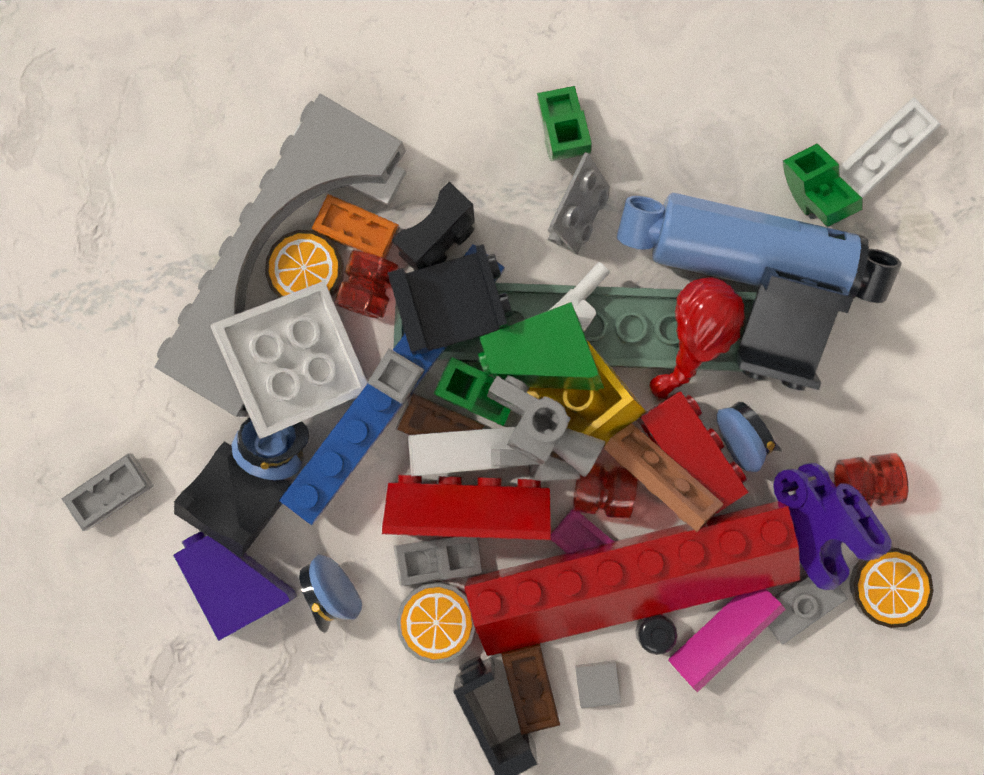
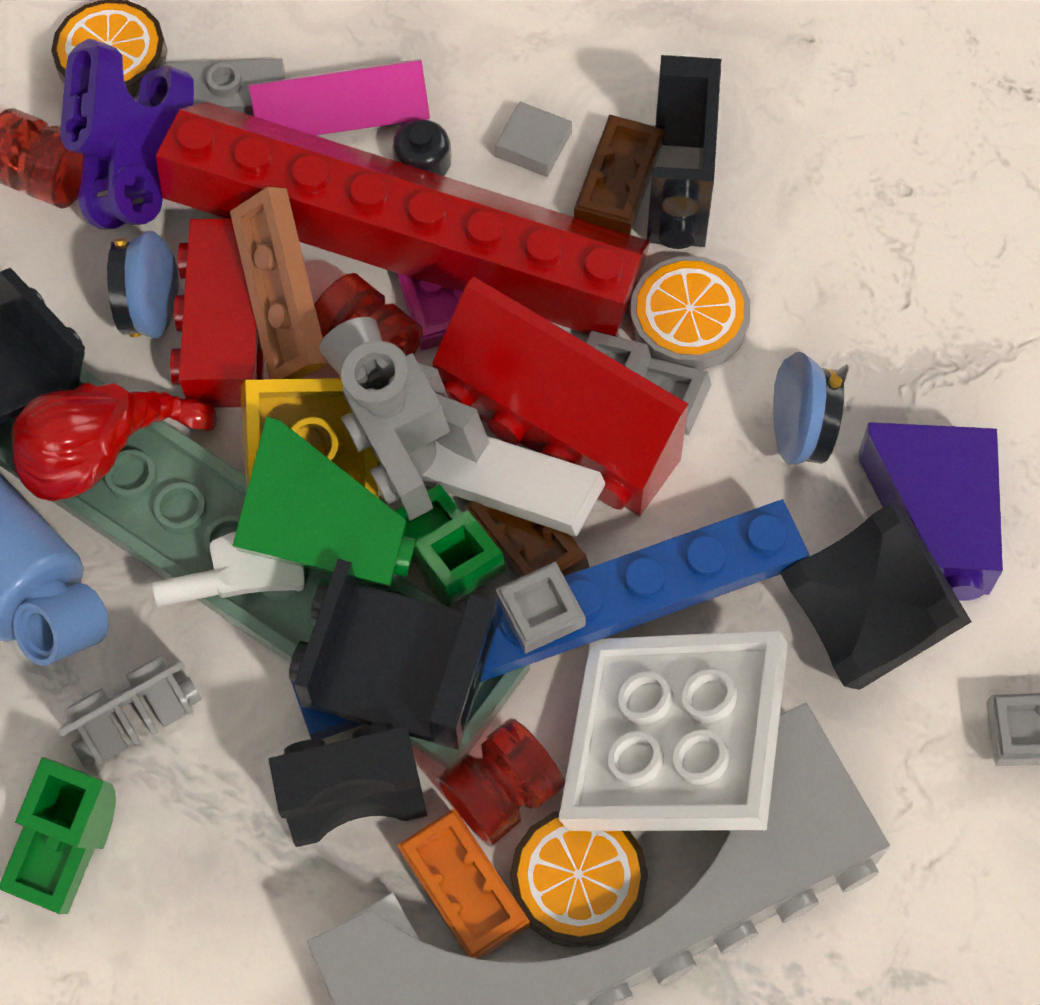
camera: 150 degrees left, 20 degrees down
(272, 456) = (804, 622): medium blue piece -> none

